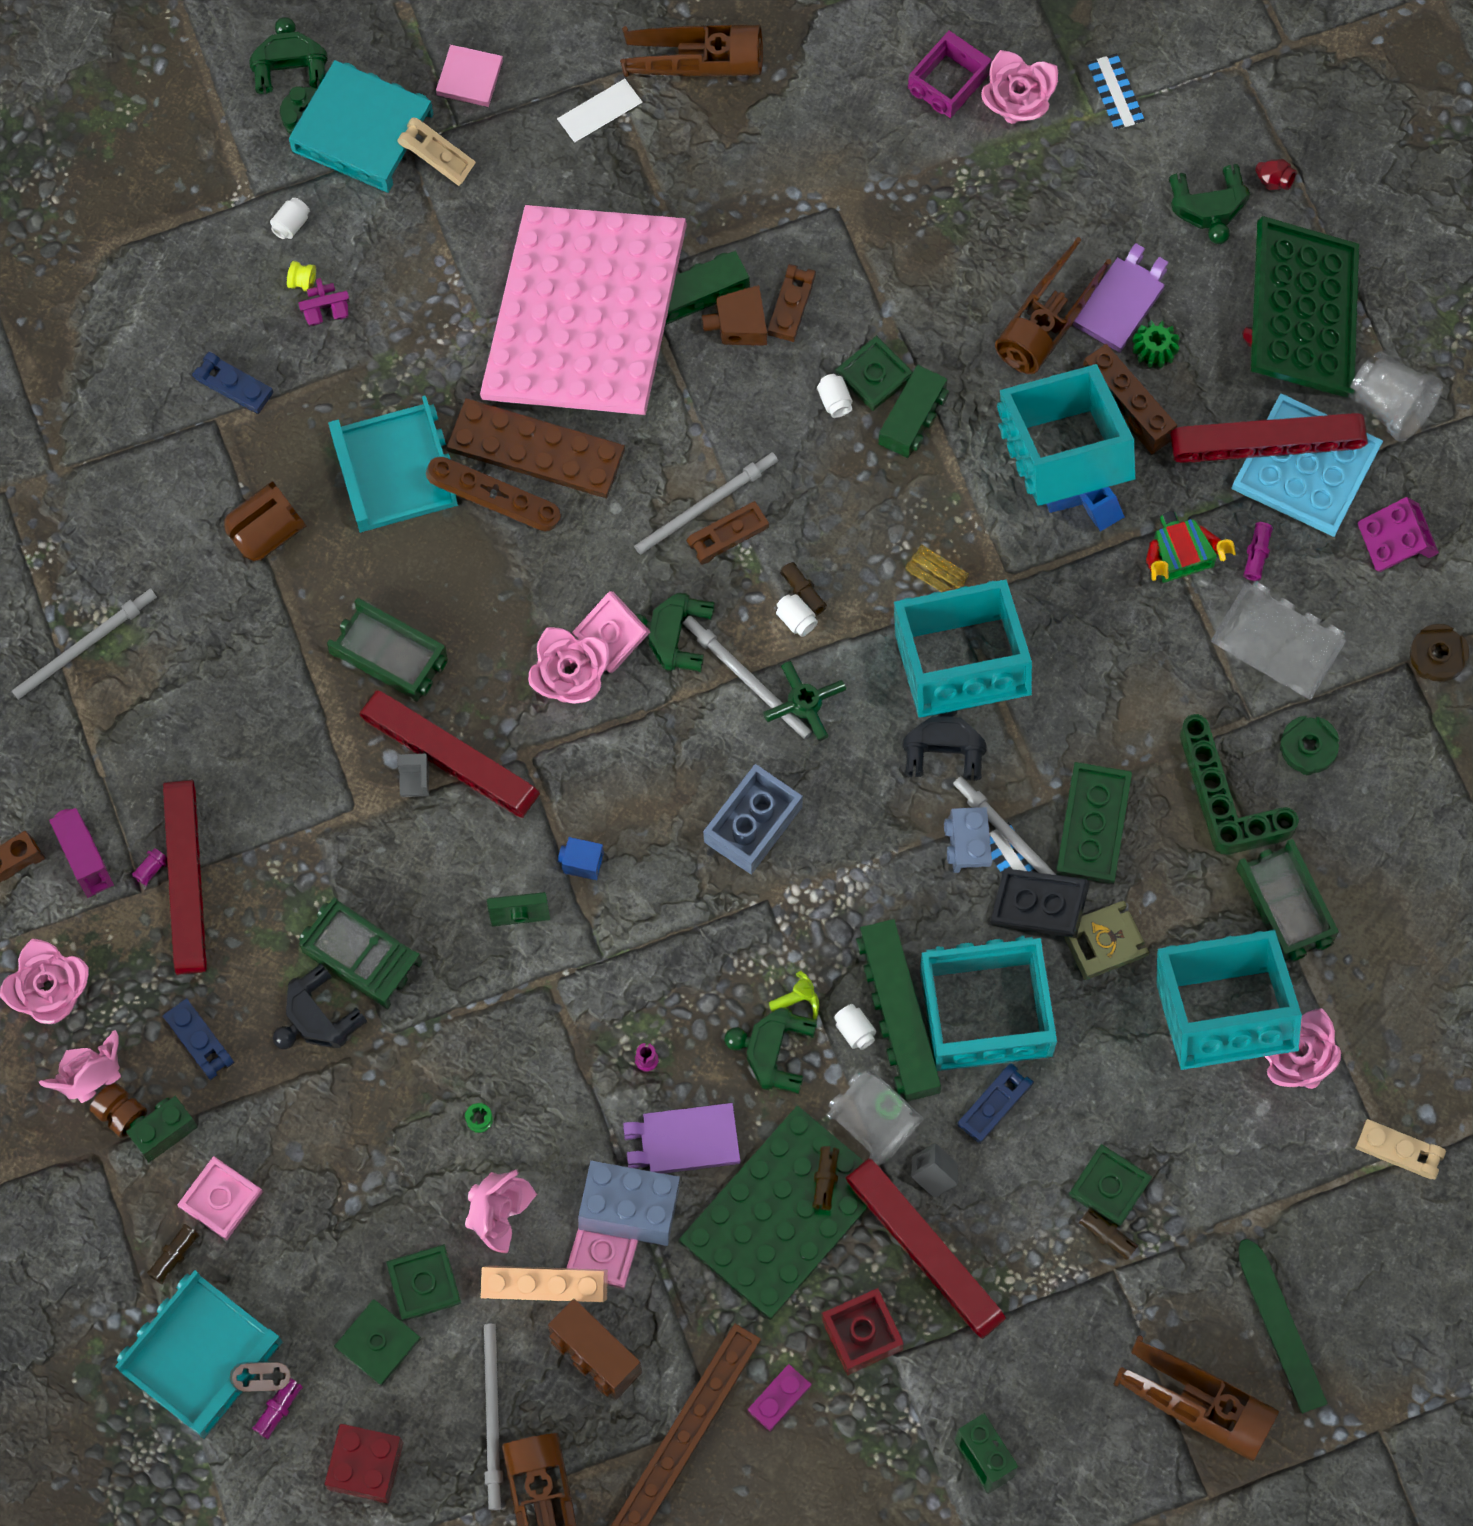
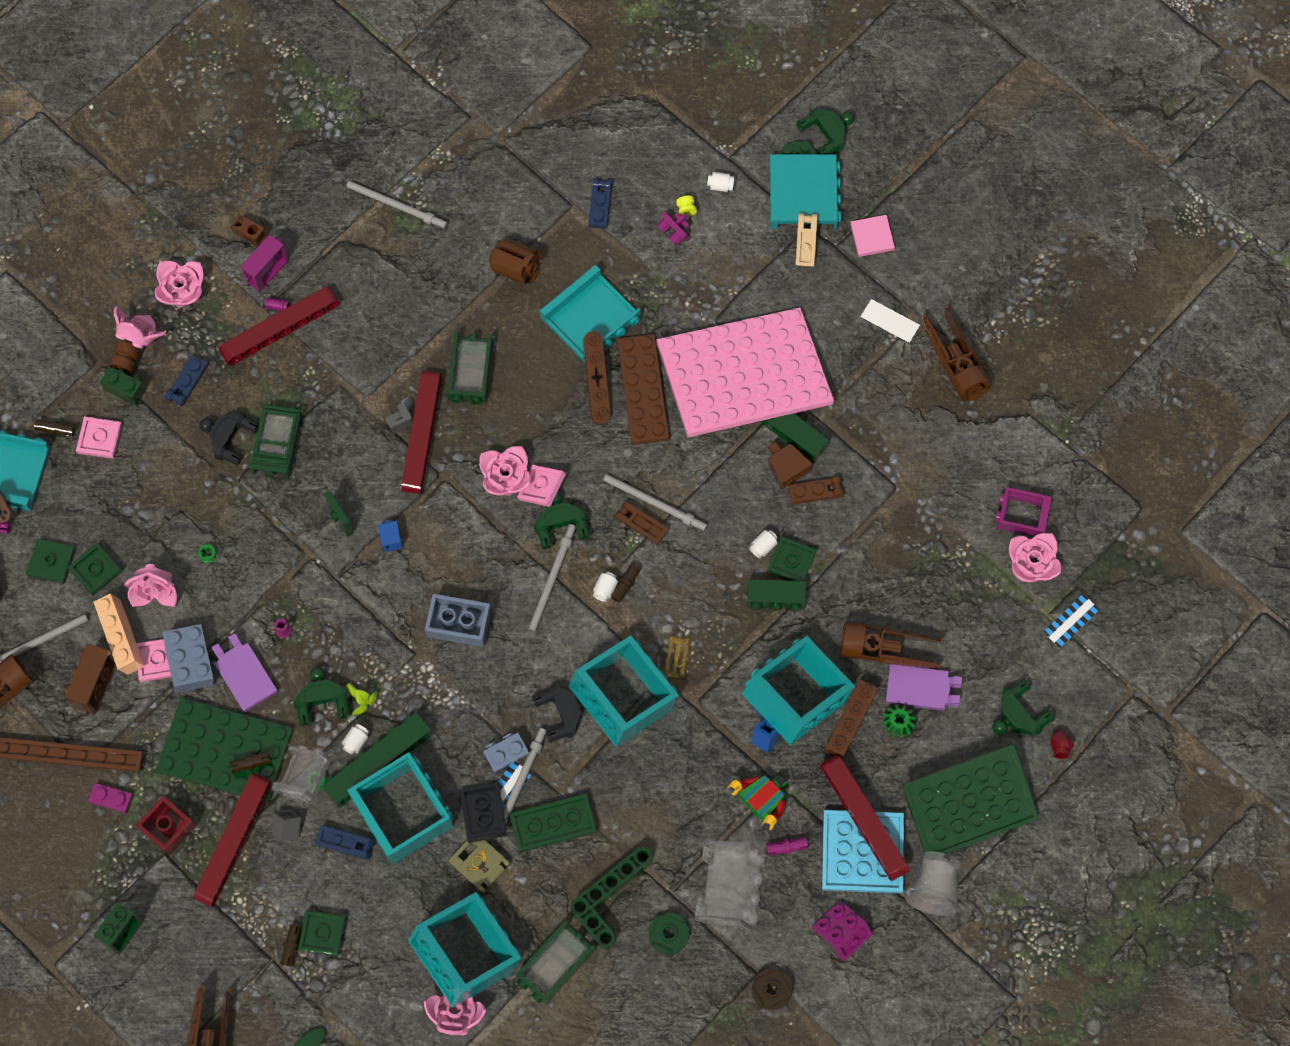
camera: 65 degrees right, 0 degrees up
(807, 693) = (550, 609): dark green bar -> none

